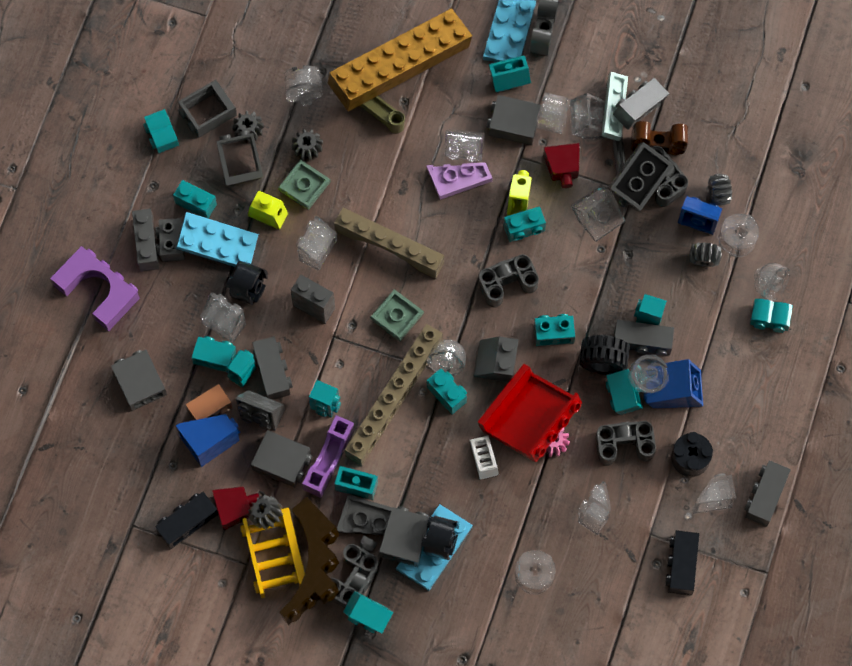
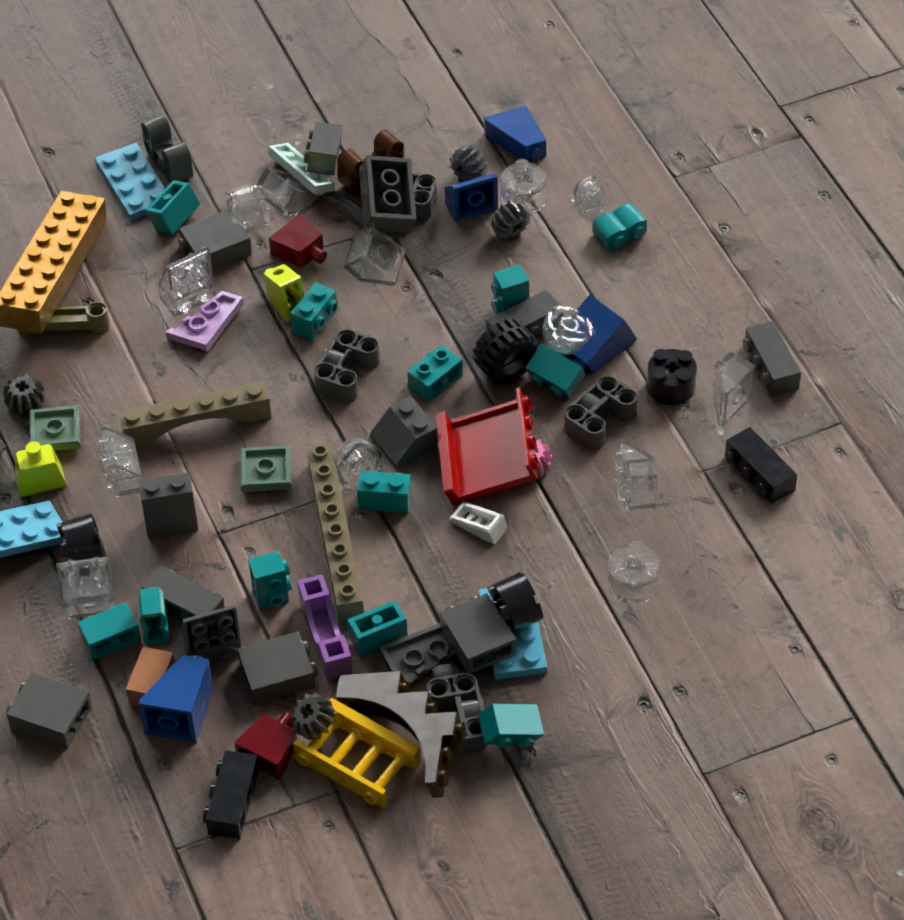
camera: 40 degrees left, 20 degrees down
(777, 187) = (516, 133): none -> blue slope

